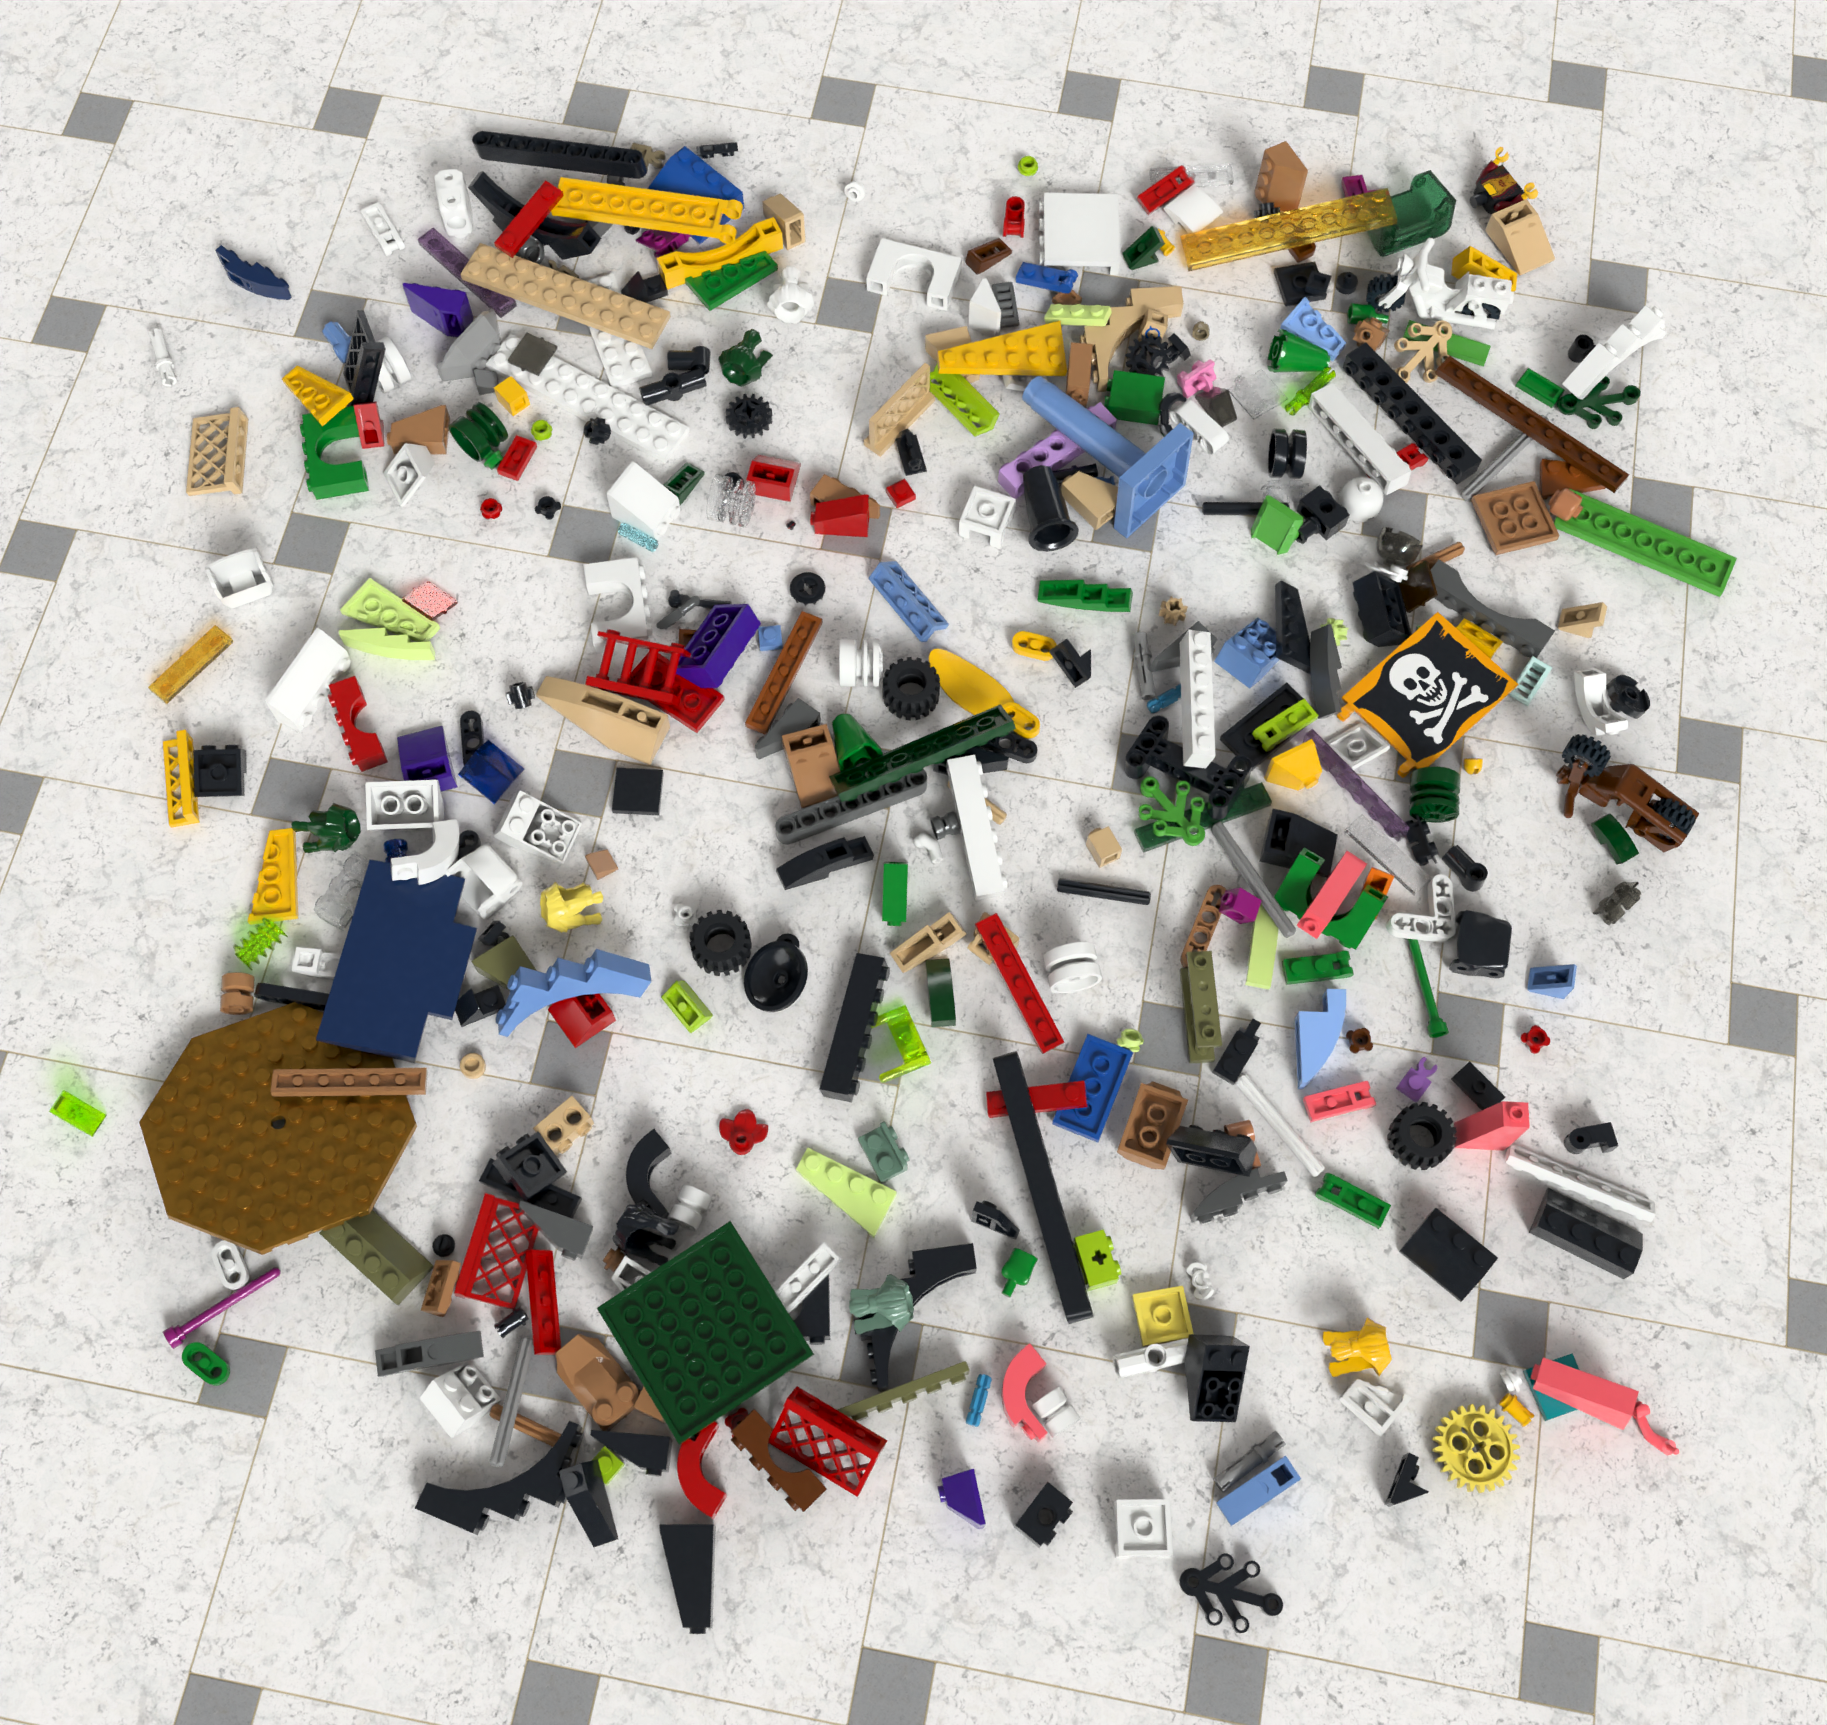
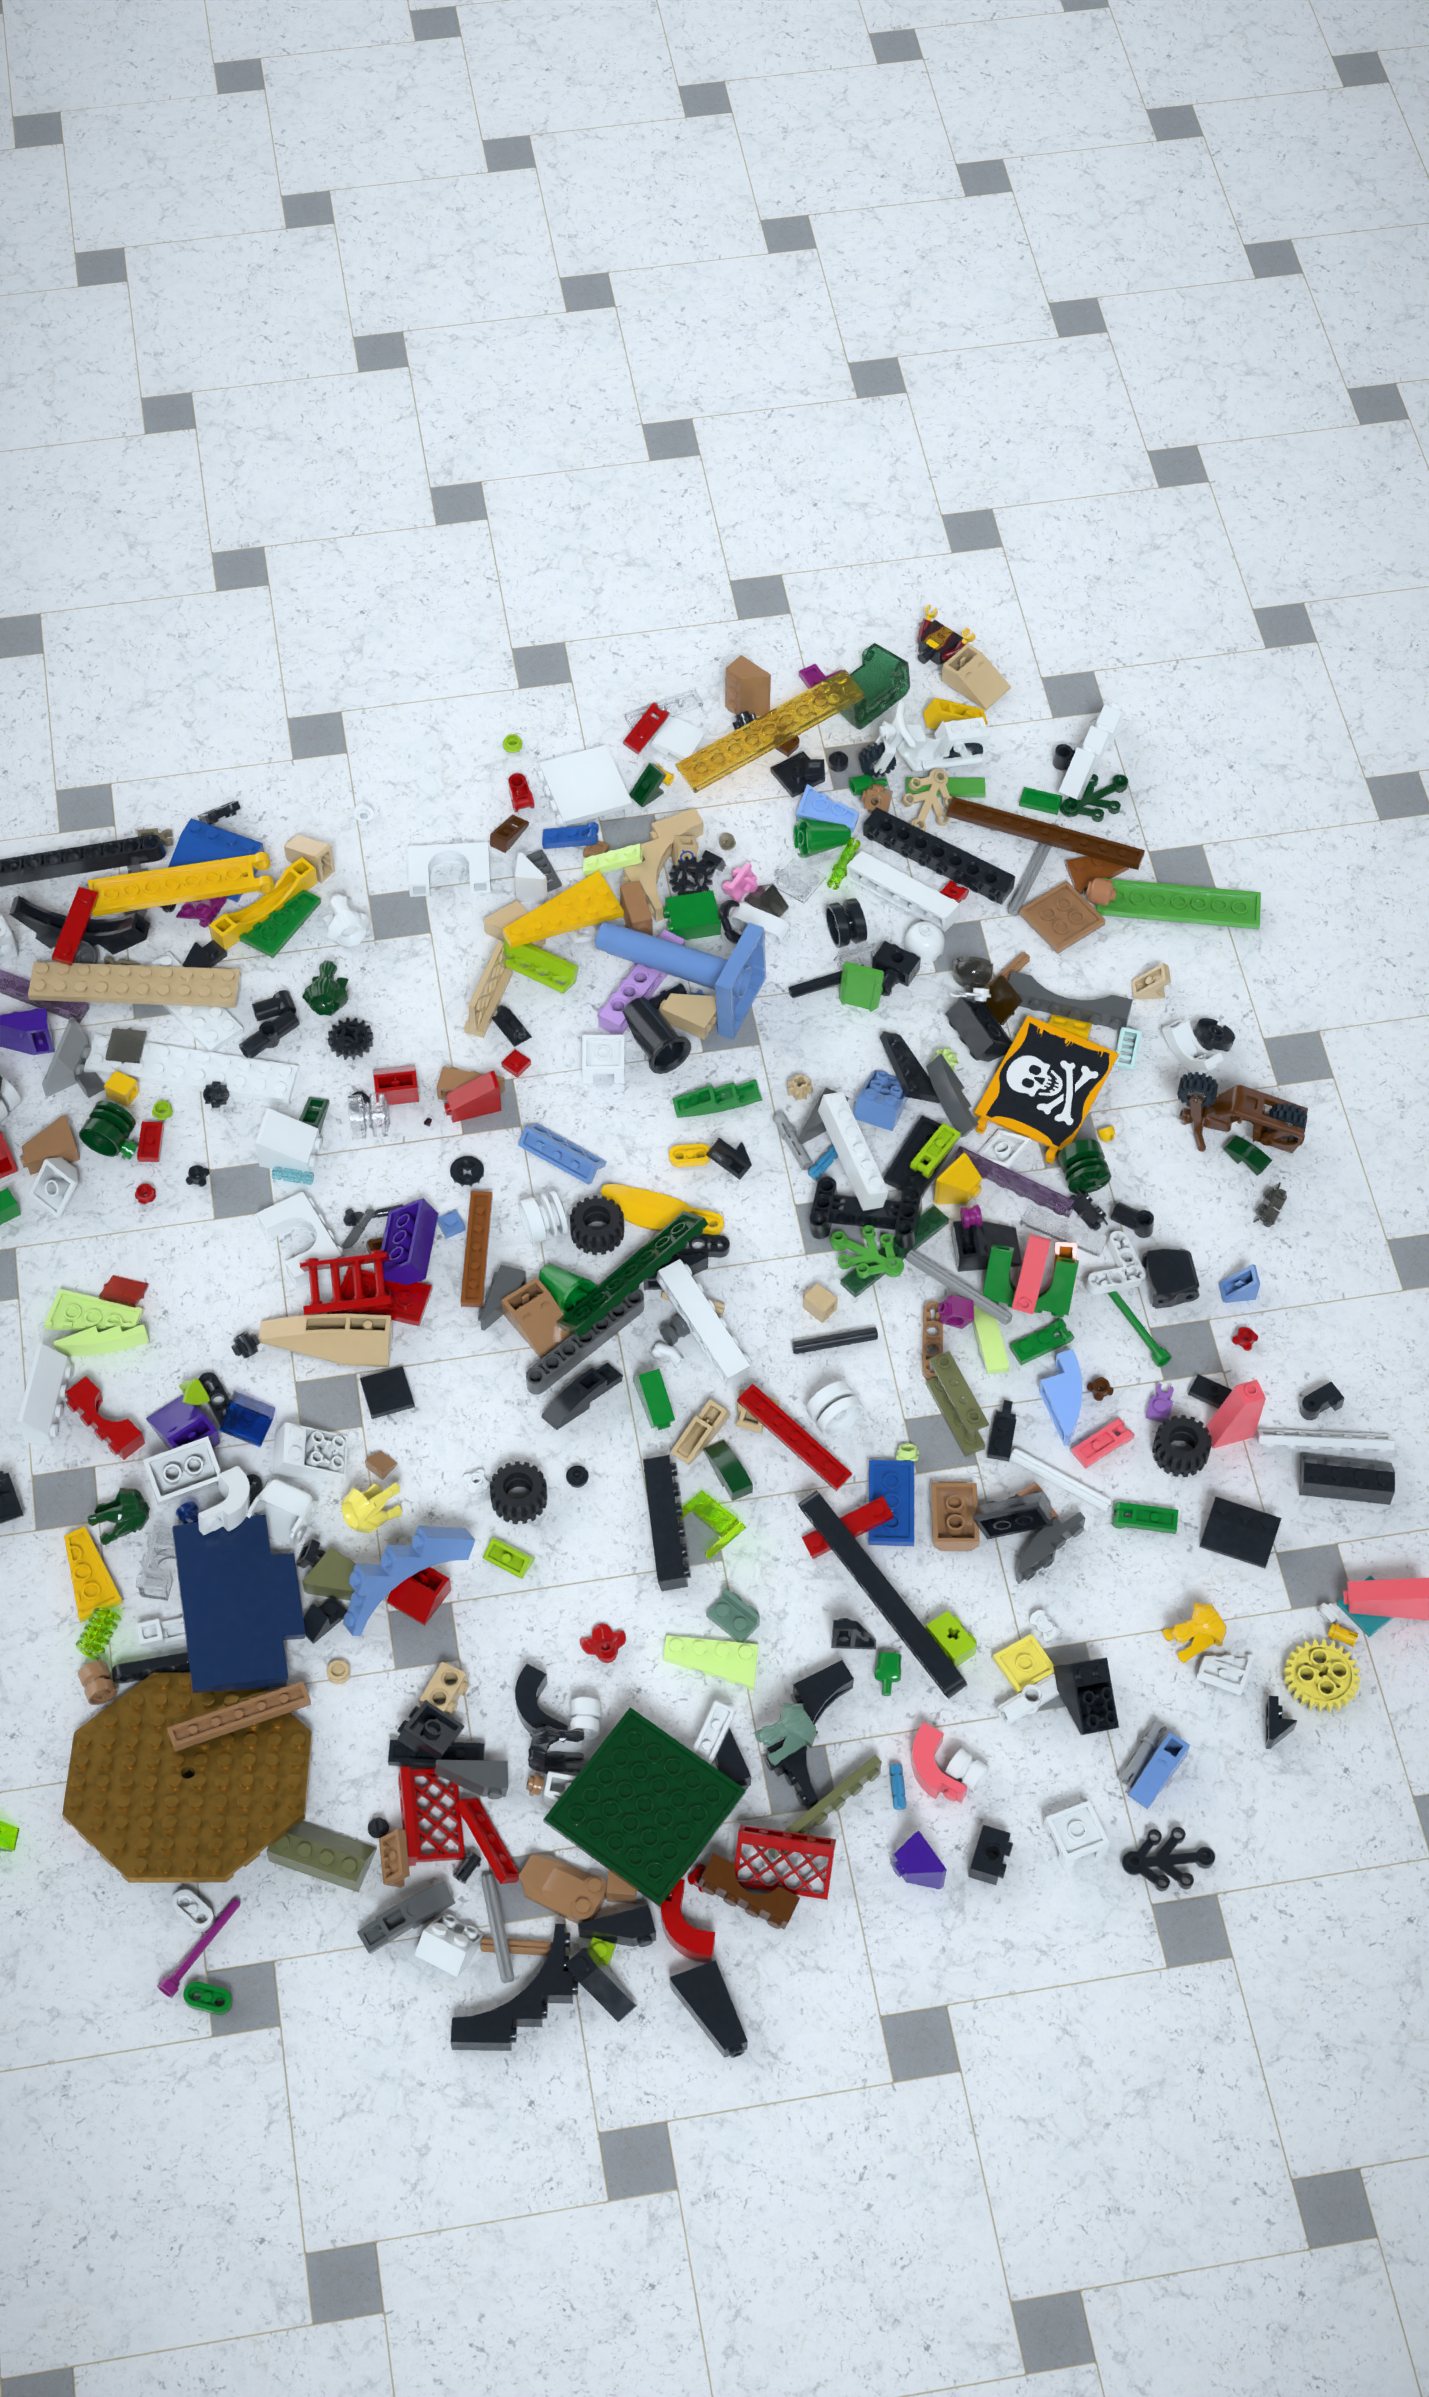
camera: 20 degrees left, 10 degrees down
(448, 729) = (194, 1392): none -> lime tile
(767, 972) = (570, 1500): black dish -> none
(1292, 810) = (971, 1216): none -> magenta wheel

